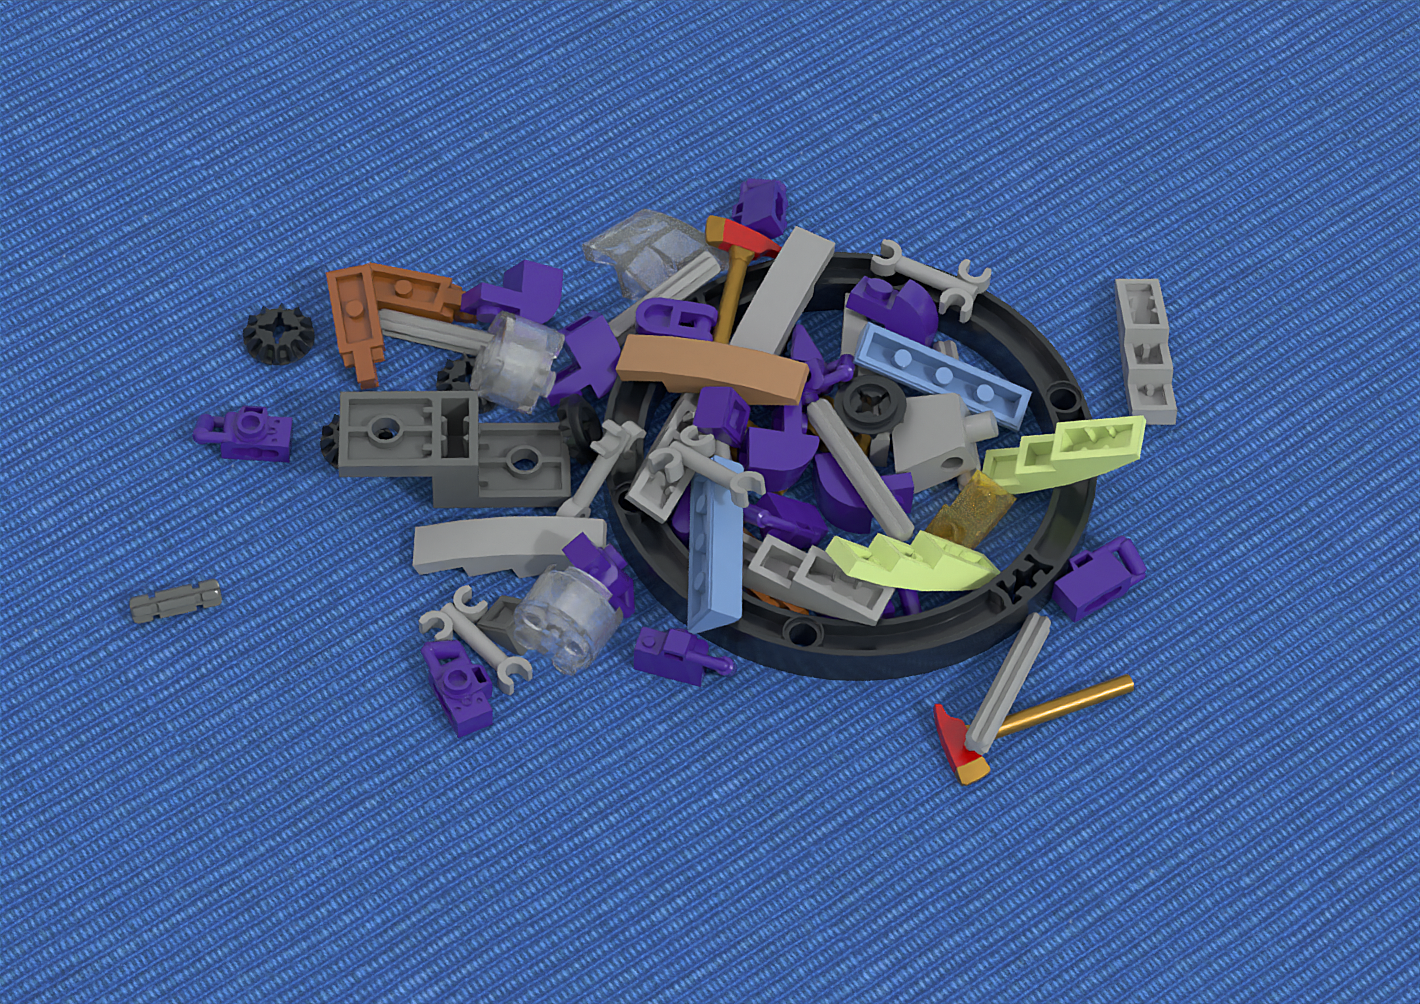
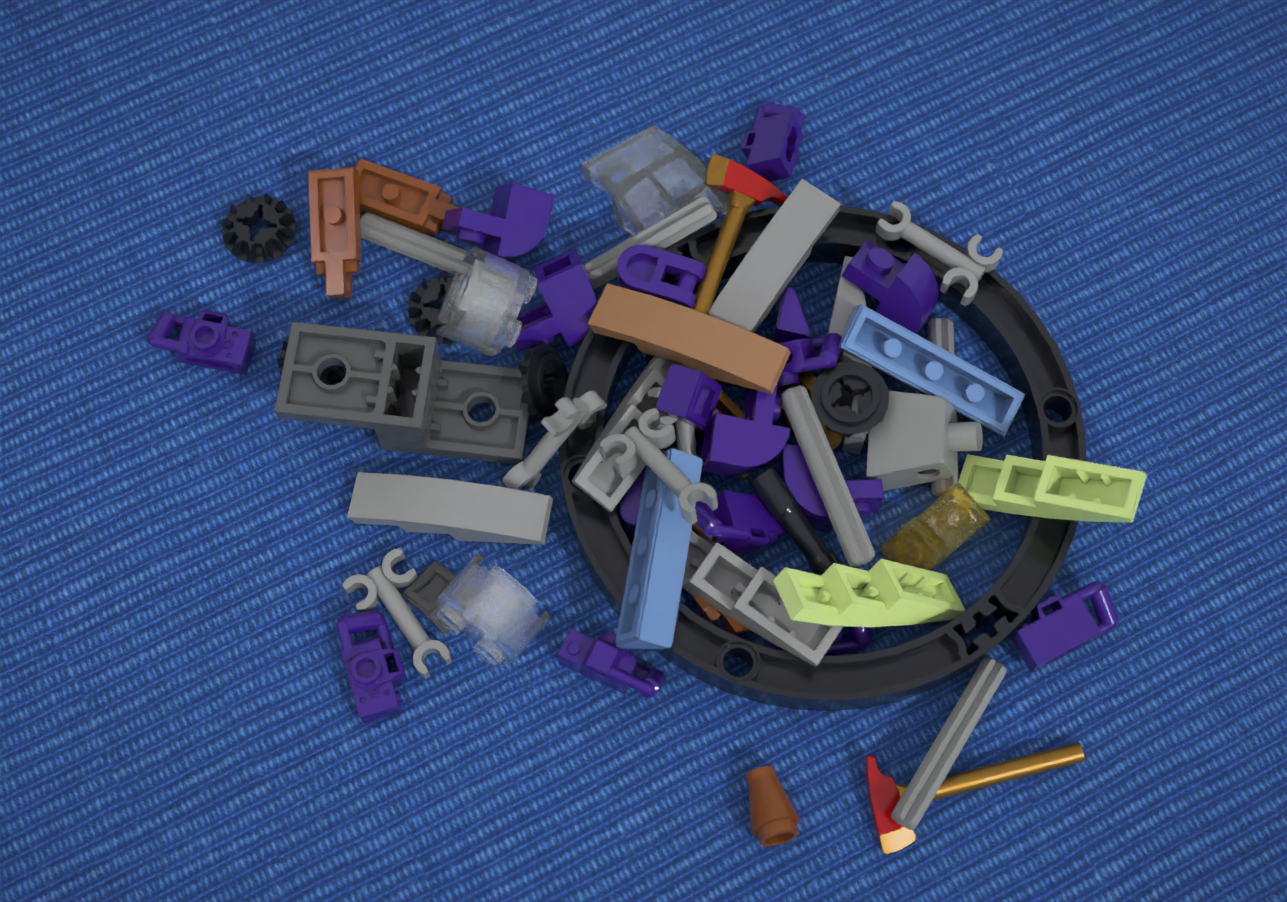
camera: 10 degrees right, 15 degrees up
(175, 601) = (99, 527): dark grey axle -> none
(606, 567) = (536, 562): dark purple piece -> none
(825, 507) = (786, 510): none -> black piece
(853, 757) = (771, 811): none -> dark orange cone
(1145, 350) = (1152, 355): light grey slope -> none

